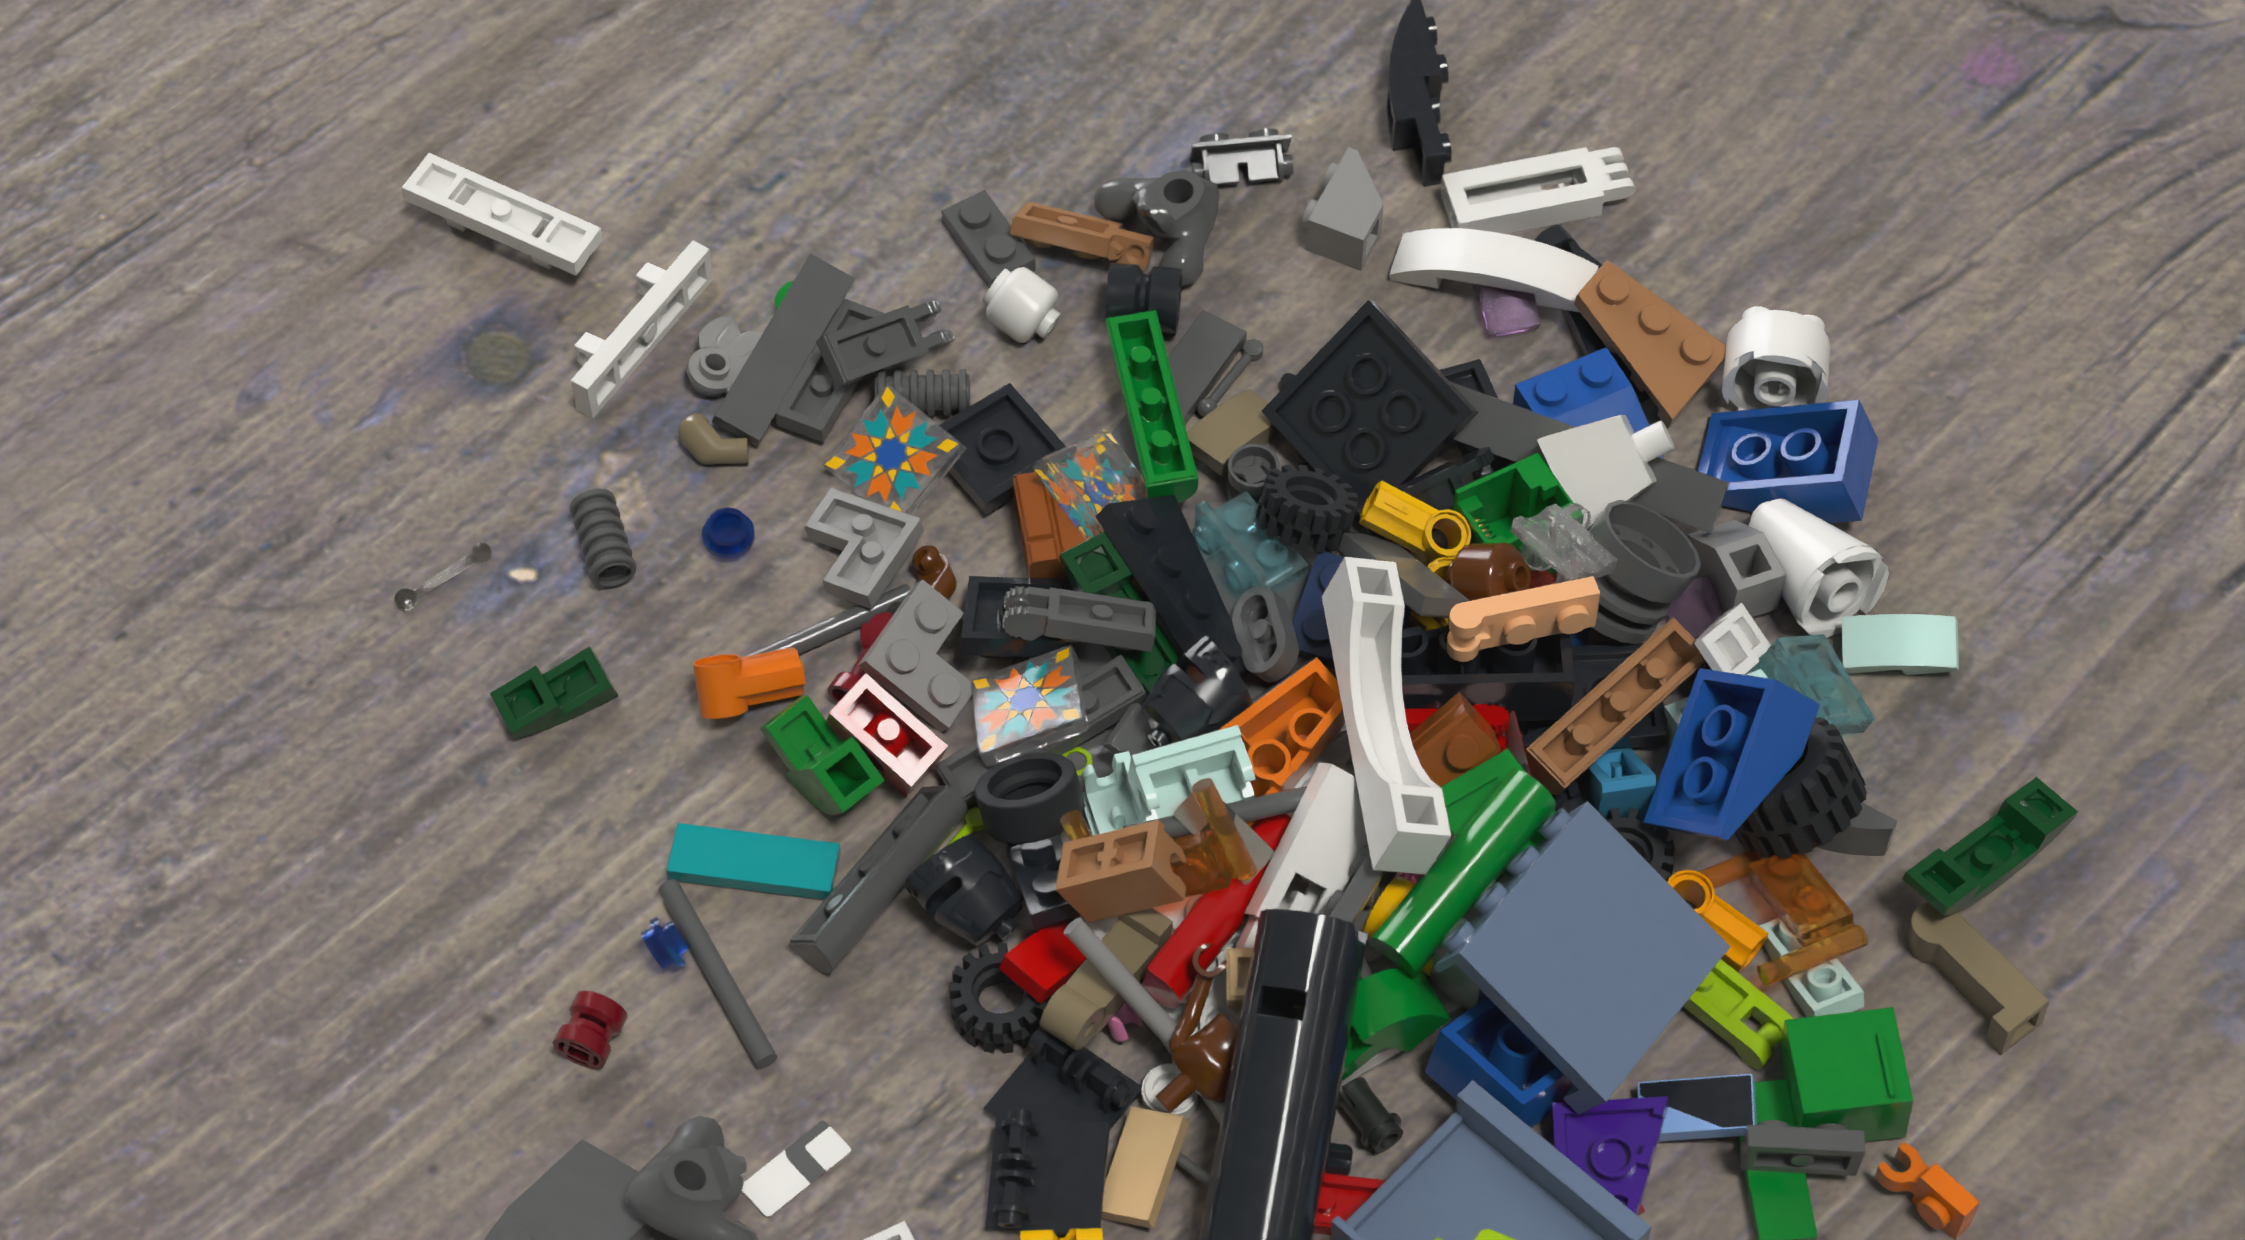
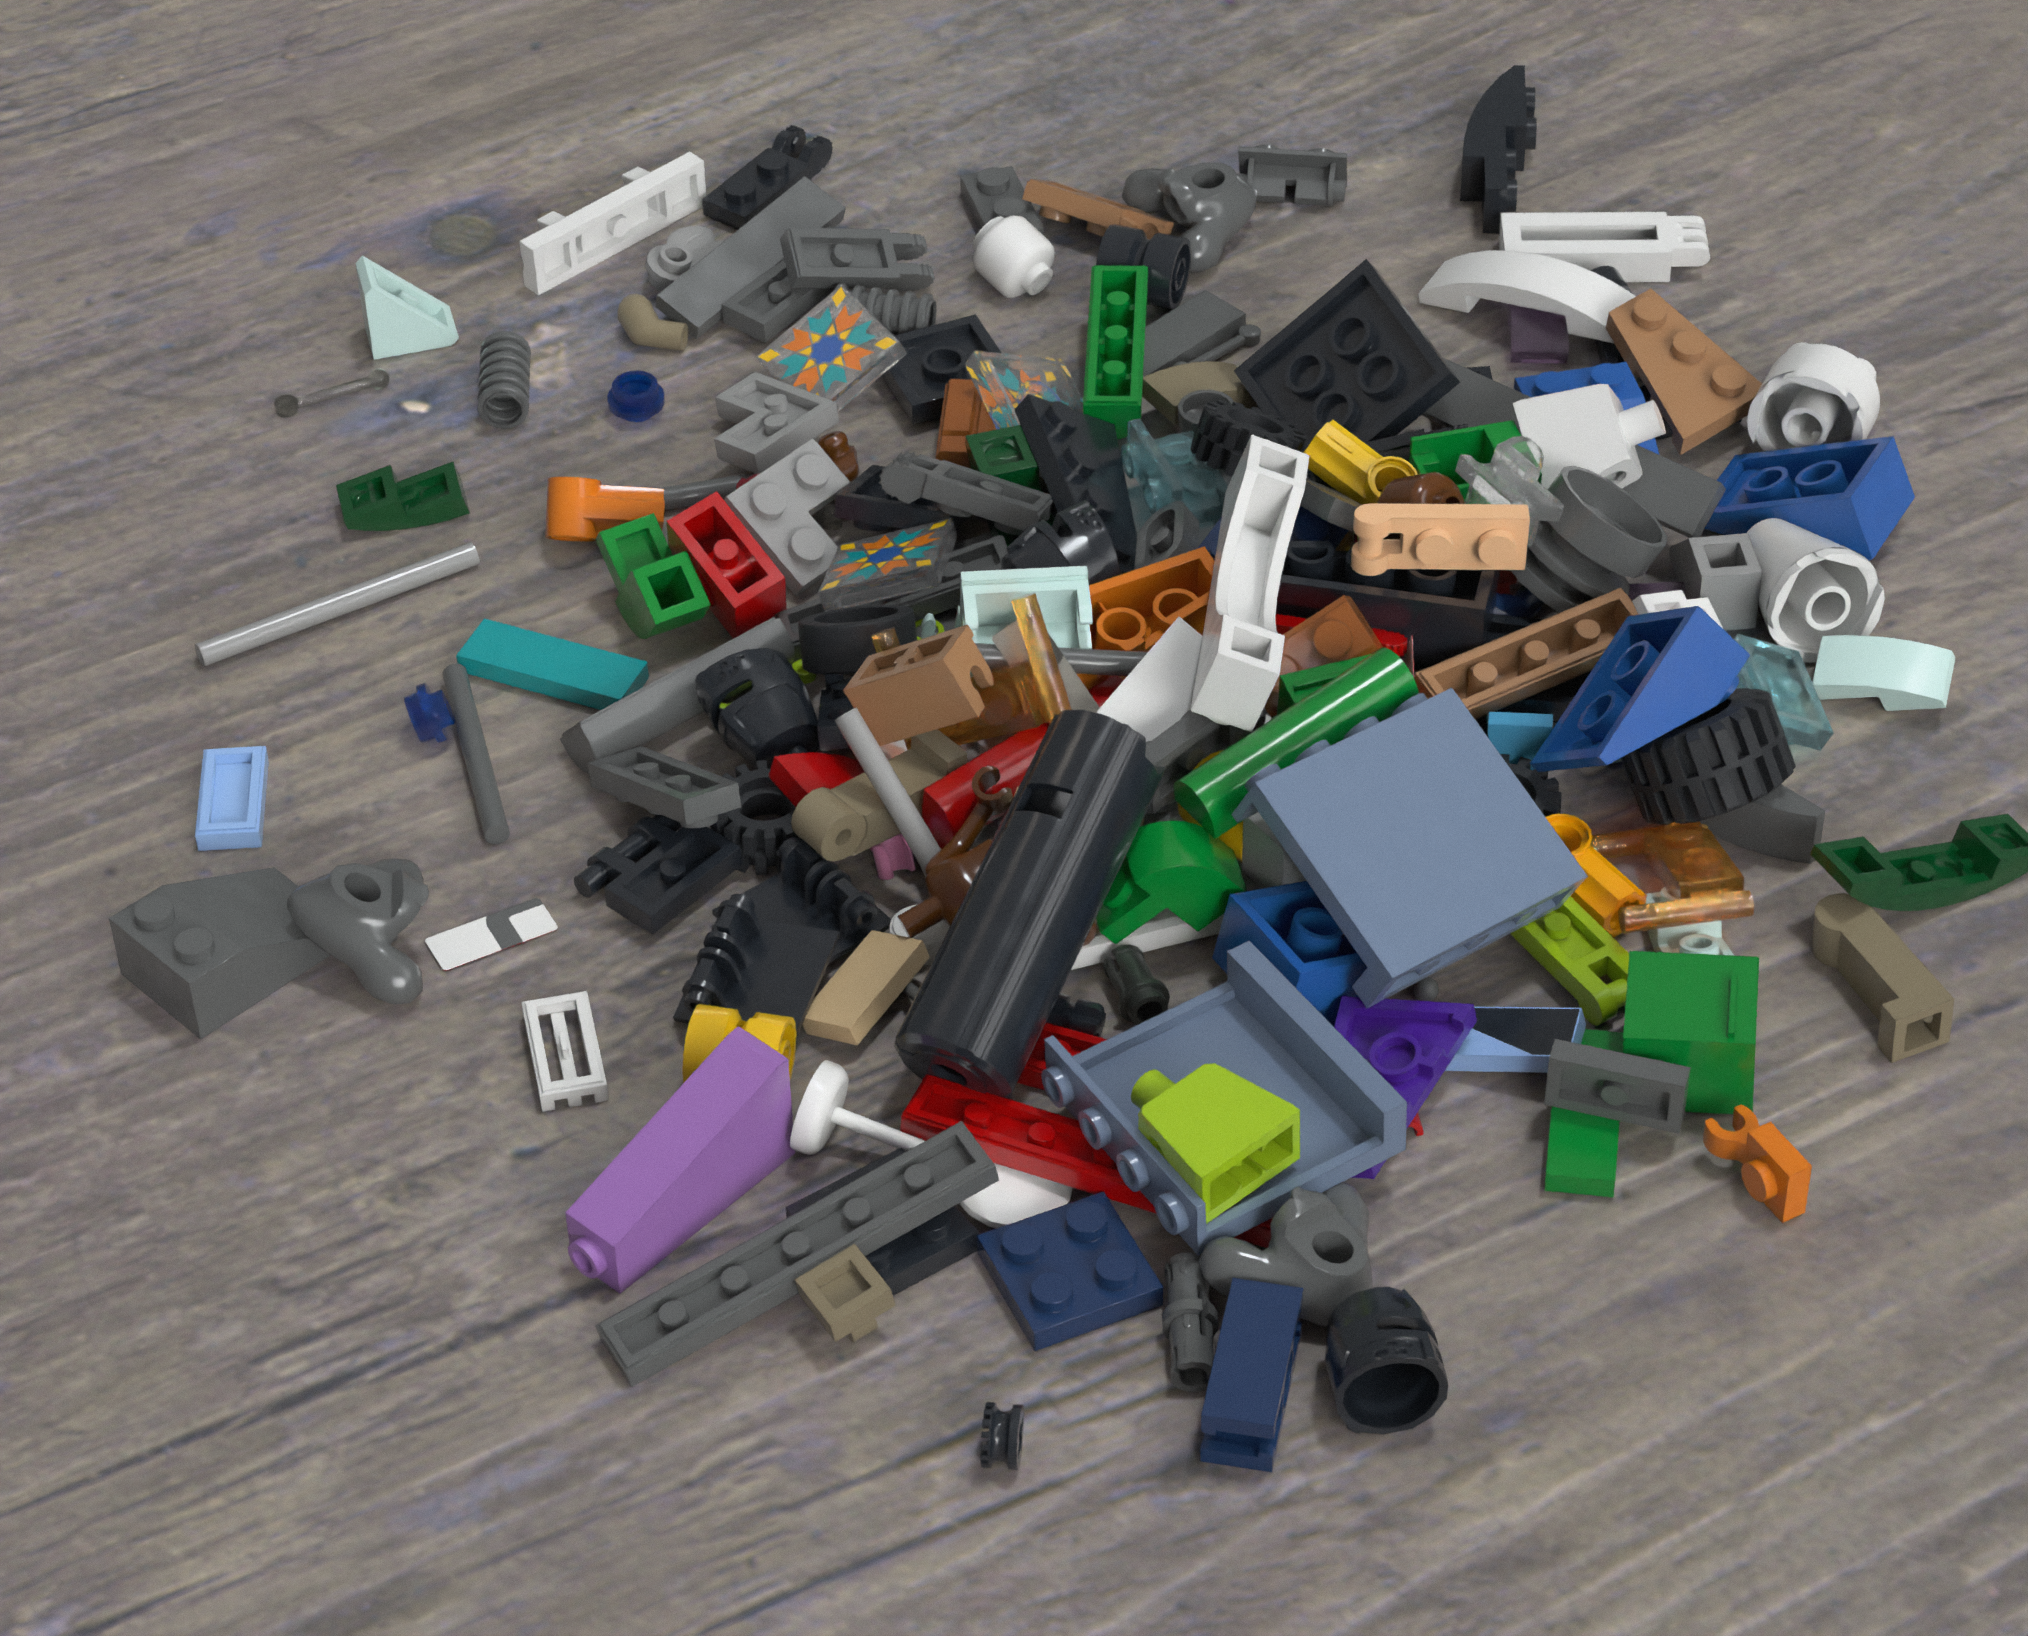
camera: 15 degrees right, 15 degrees down
(482, 478) = (400, 315): none -> light aqua slope
(502, 214) = (508, 111): white hinge -> none
(516, 1069) = (232, 798): none -> light blue tile
(534, 828) = (336, 604): none -> light grey piece
(590, 1029) = (325, 765): dark red wheel -> none
(763, 246) = (767, 177): none -> black hinge
(907, 992) = (665, 786): none -> dark grey plate
(938, 1080) = (669, 877): none -> black plate
(1347, 215) = (1385, 231): light grey slope -> none

